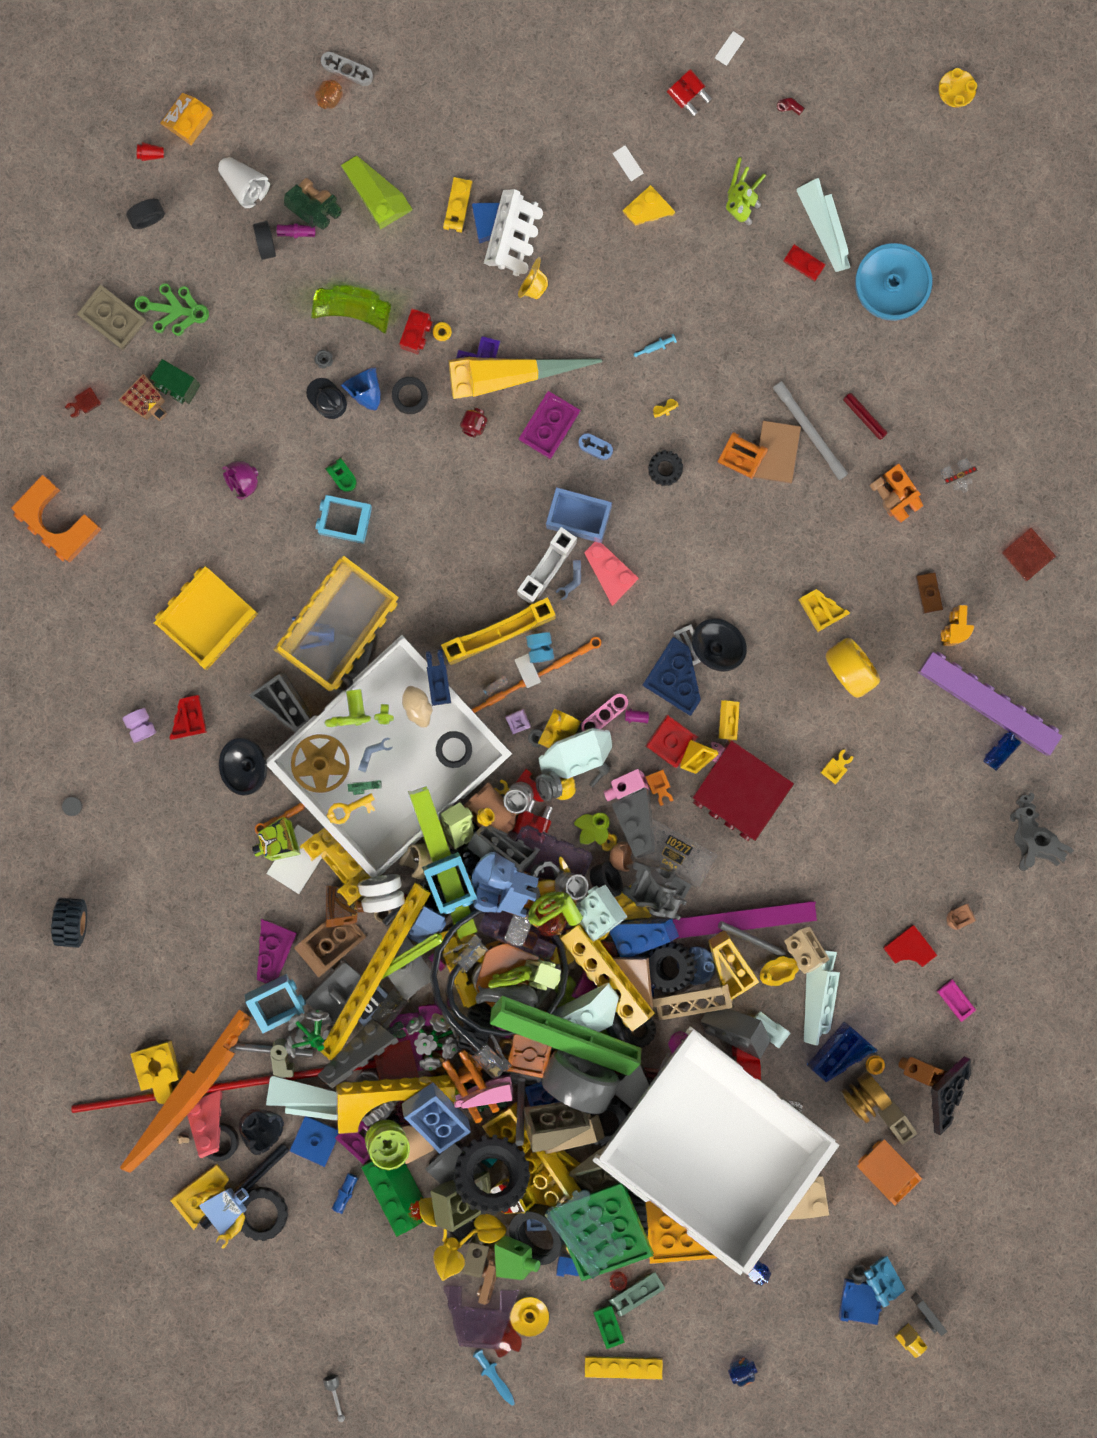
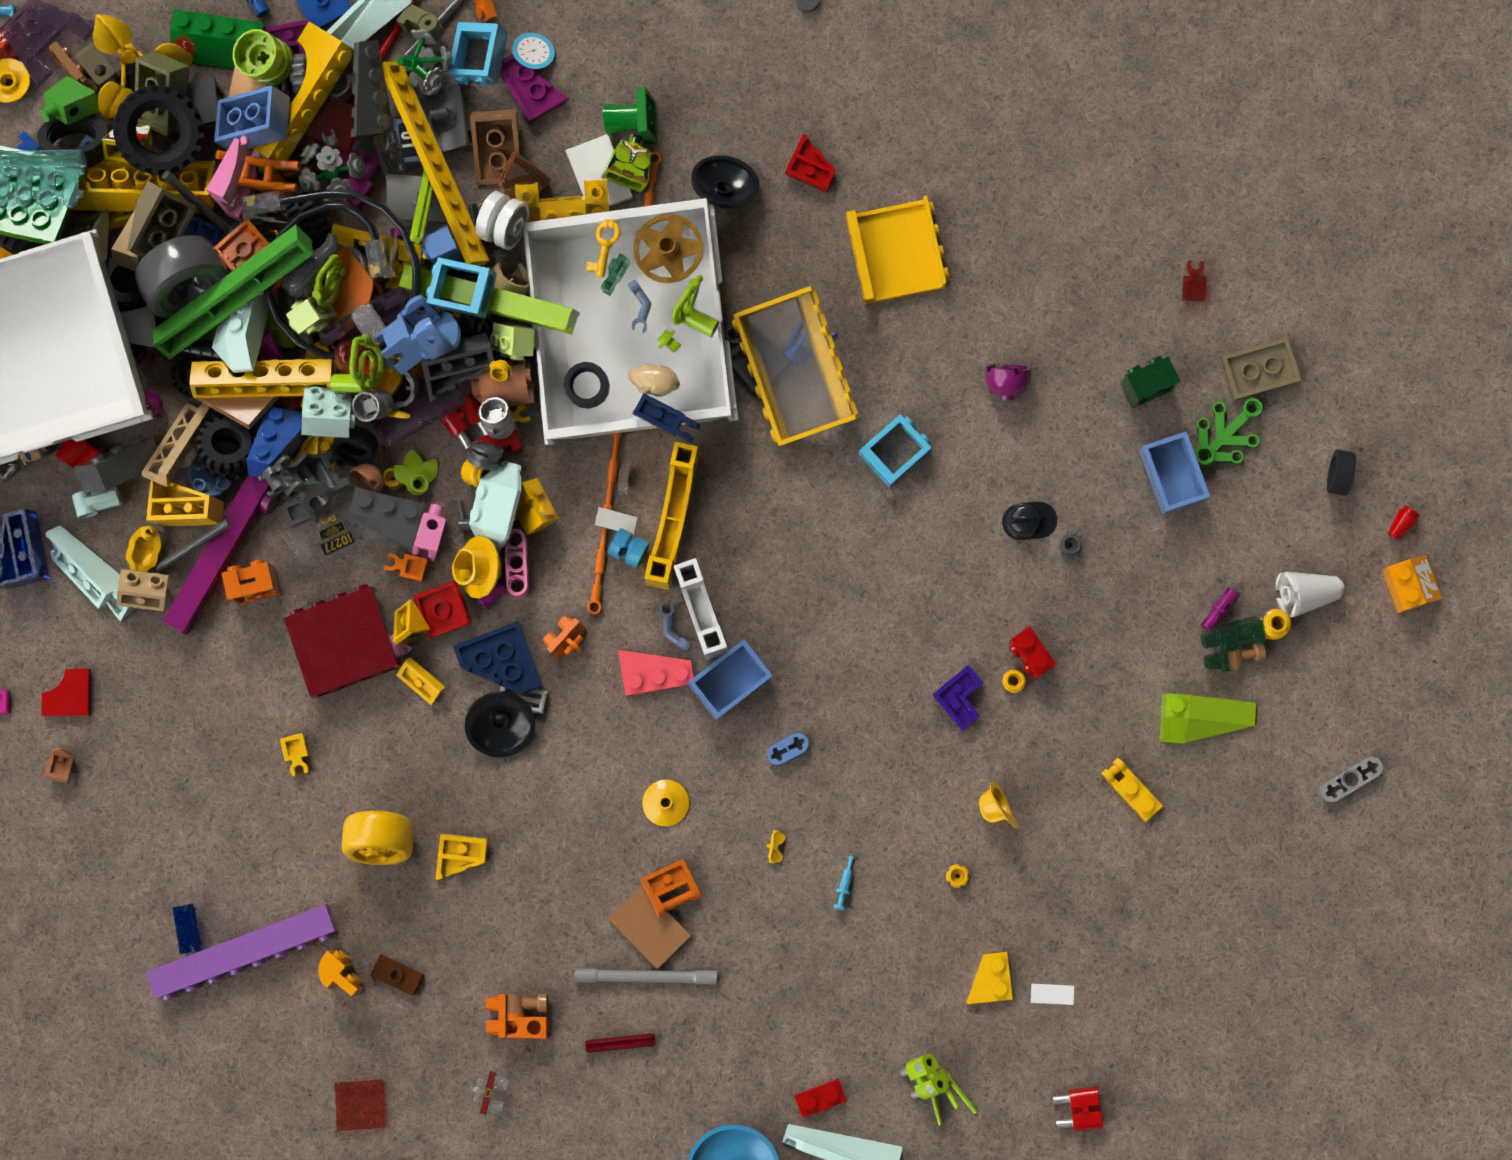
camera: 130 degrees right, 5 degrees down
(30, 509) = (1122, 157): orange arch -> none
(139, 725) = (838, 114): lavender wheel -> none
(144, 399) = (1155, 340): torso -> none
(226, 322) = (1174, 473): none -> medium blue piece
(243, 863) = (633, 117): none -> green plant
(244, 968) = (533, 50): none -> sticker
(264, 240) = (1231, 569): black tyre -> none
(278, 186) = (1281, 621): none -> yellow head
(283, 701) = (757, 265): dark grey wedge -> none
(328, 94) = (1336, 741): clear orange head -> none
(345, 481) = (931, 480): green plate -> none
(352, 303) = (1107, 613): clear neon green windscreen -> none
(364, 388) = (1011, 562): blue helmet -> none
(409, 381) = (985, 590): black tyre -> none
(410, 1054) = (330, 141): none -> dark grey hand
(473, 422) = (899, 645): dark red head -> none
(483, 375) = (936, 692): yellow plate -> none
(484, 219) = (1090, 811): blue torso -> none
(503, 231) = (1072, 815): white fence -> none
(518, 721) = (573, 476): lavender tile -> none
(532, 737) = (548, 478): dark grey plate -> none
(549, 425) = (842, 718): magenta plate -> none
(597, 272) = (957, 882): none -> yellow plate
(626, 737) = (477, 567): none -> yellow helmet
(638, 645) = (567, 640): none -> orange hips
(665, 479) = (702, 795): black tyre -> none
(682, 508) = (665, 815): none -> yellow dish
(686, 912) = (268, 504): none -> tile
(749, 880) = (251, 583): none -> orange piece
(1035, 840) = (76, 892): dark grey animal -> none

